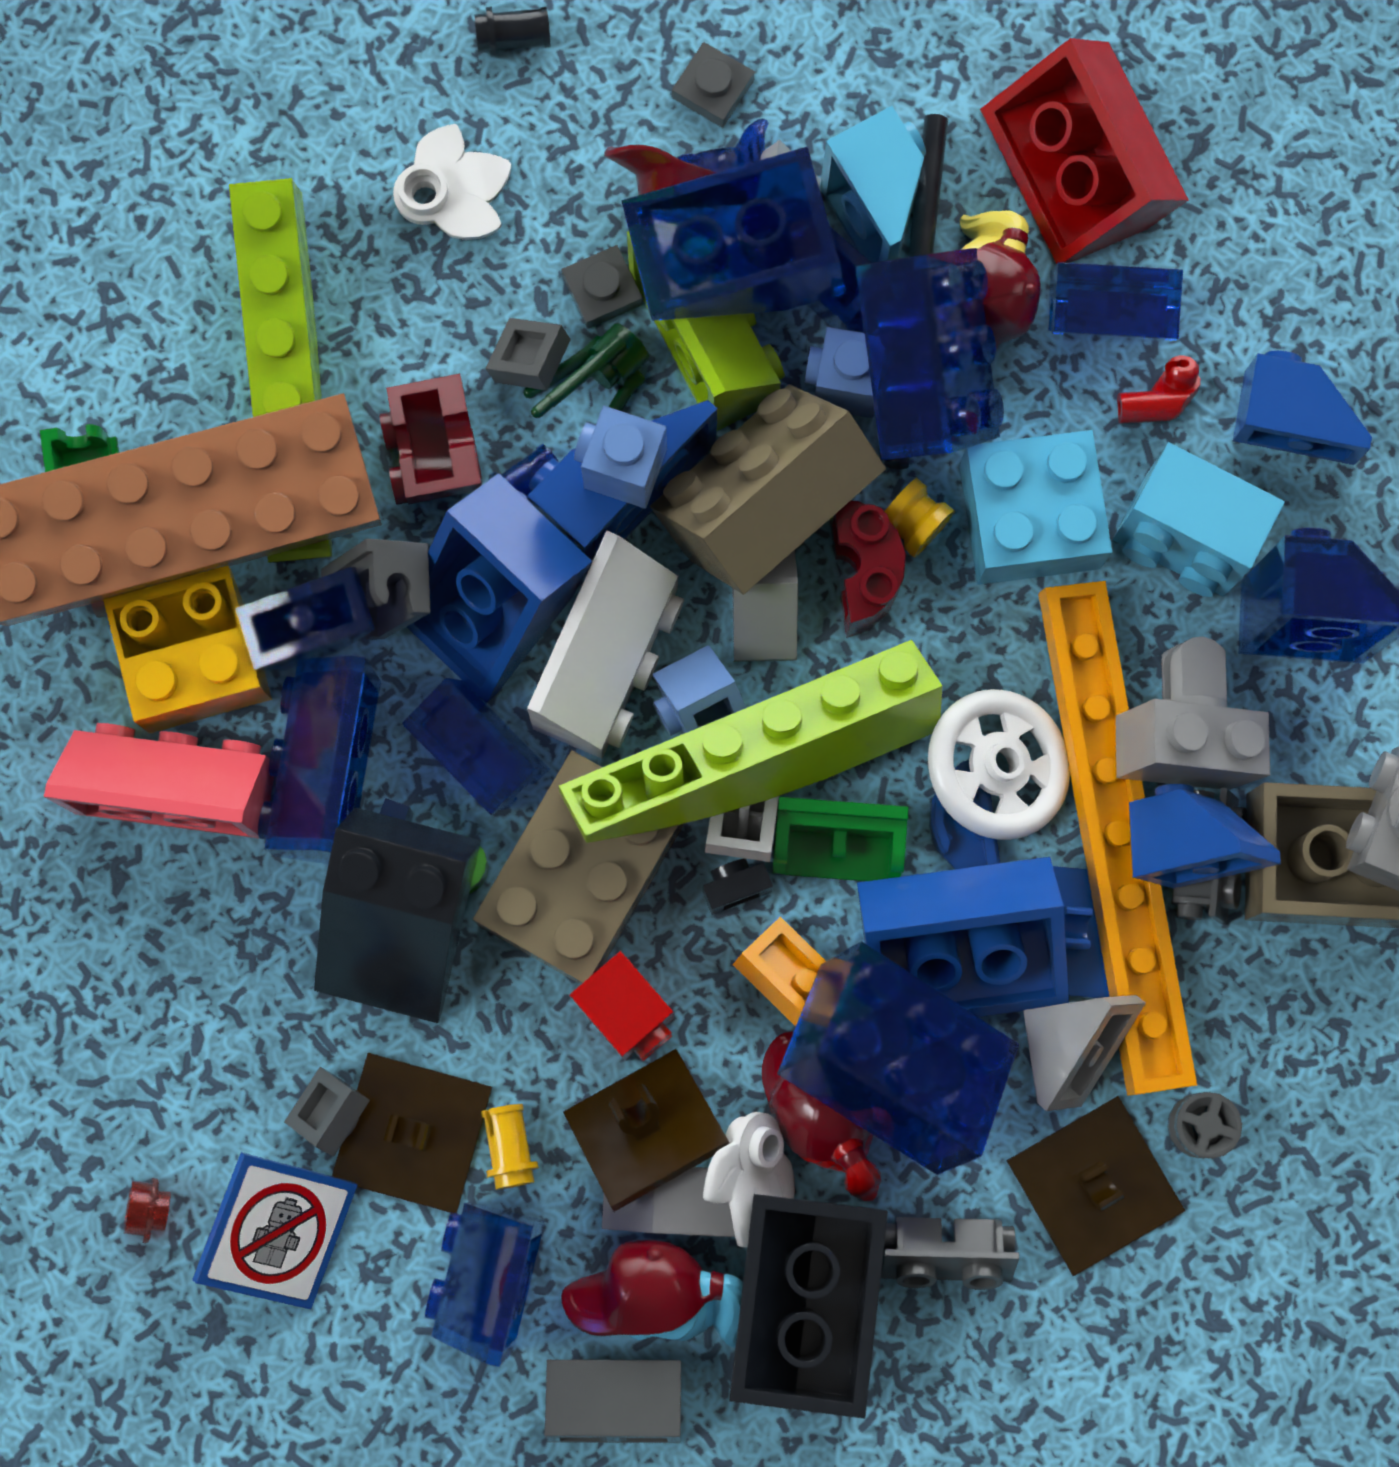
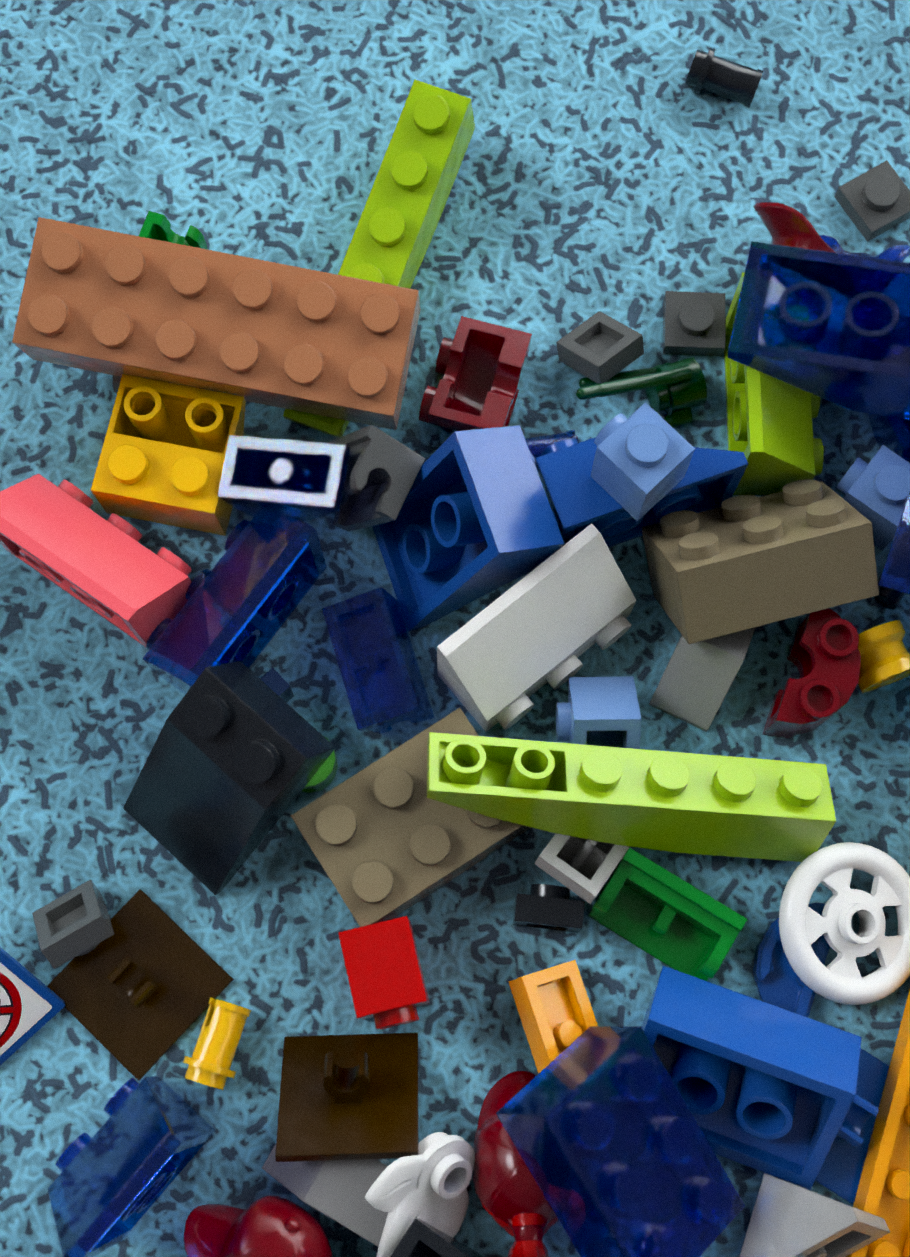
camera: 30 degrees right, 5 degrees down
(461, 182) = (614, 184): white plate -> none

